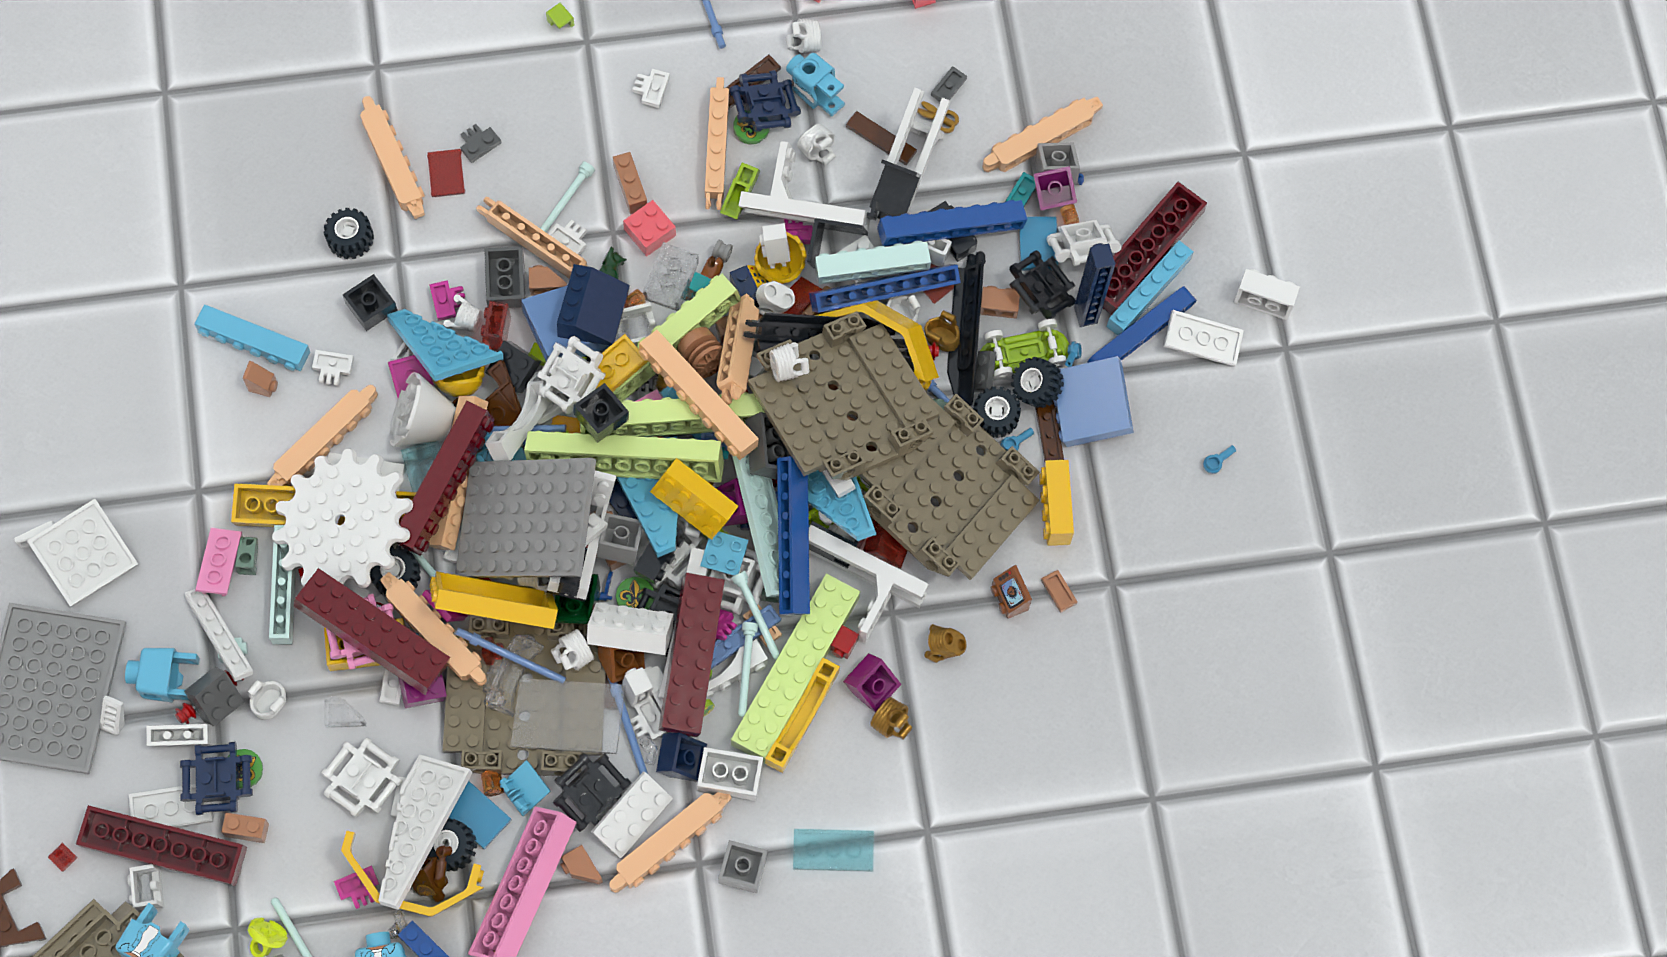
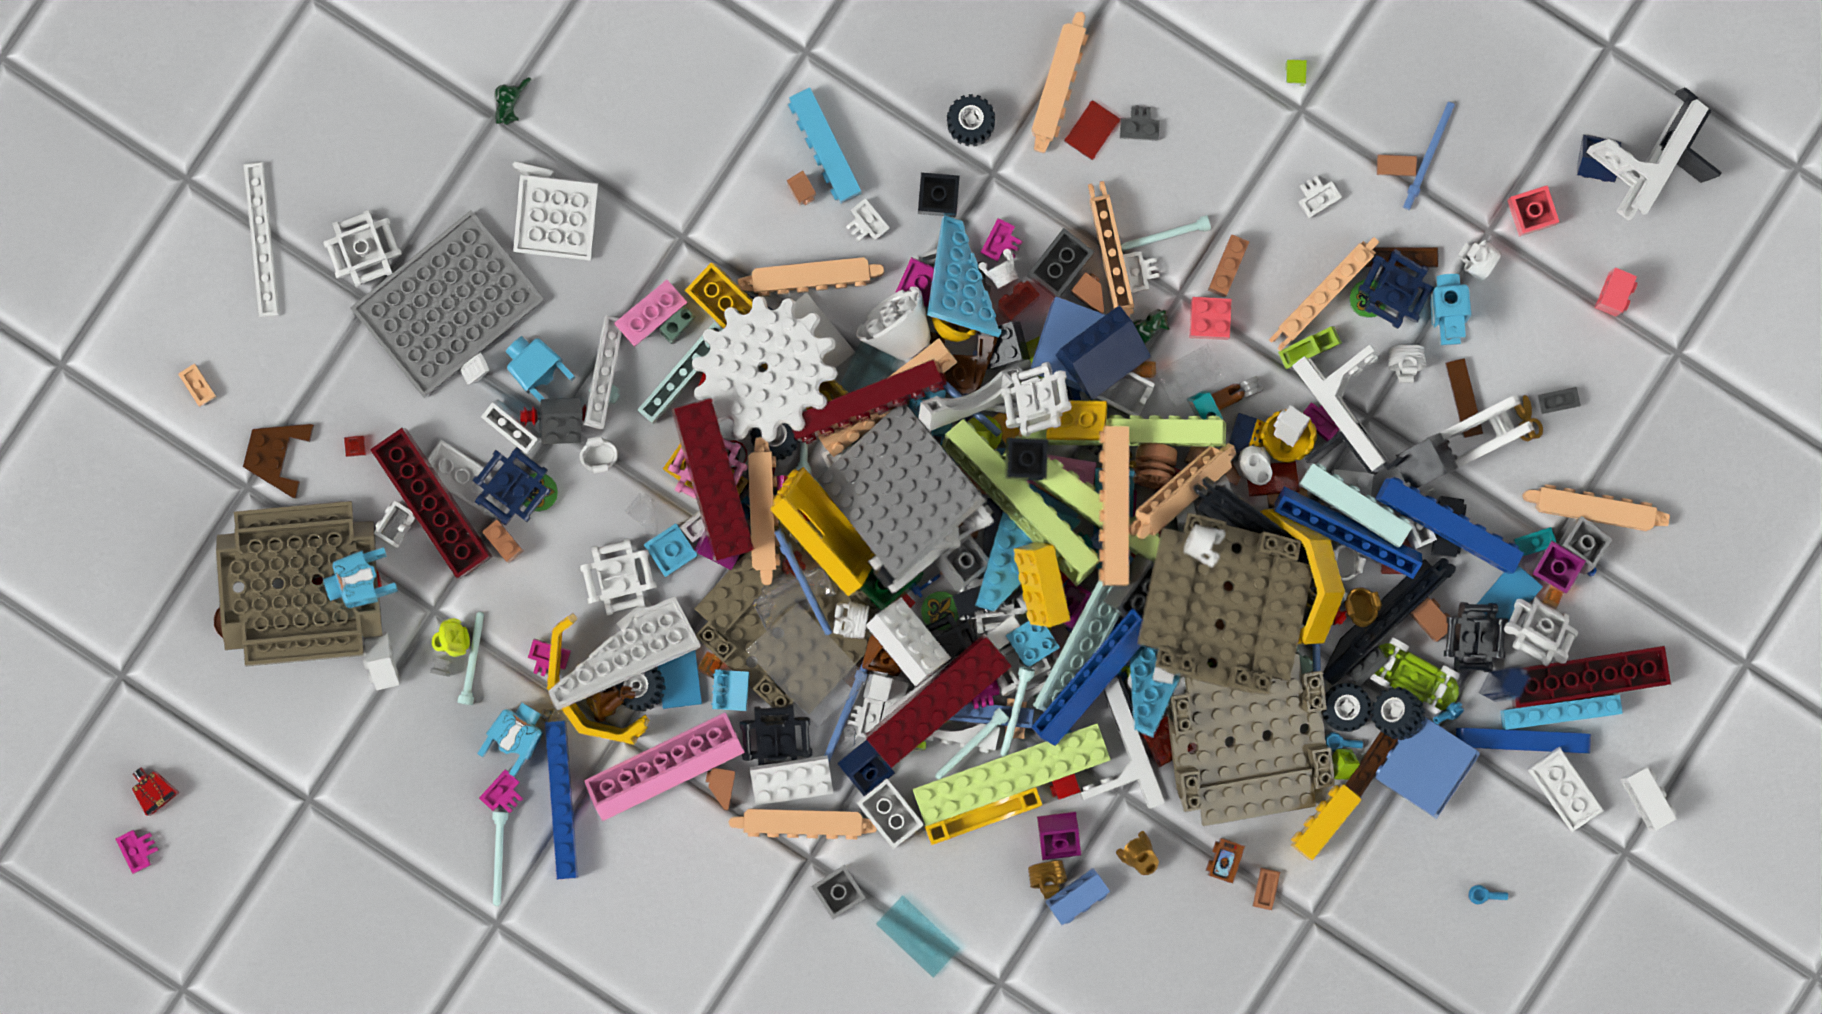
camera: 45 degrees right, 15 degrees up
(386, 724) = (670, 550): none -> medium azure plate
(689, 24) = (1396, 165): none -> nougat tile
(927, 714) = (1077, 897): none -> medium blue brick
(1033, 452) = (1344, 763): none -> lime panel

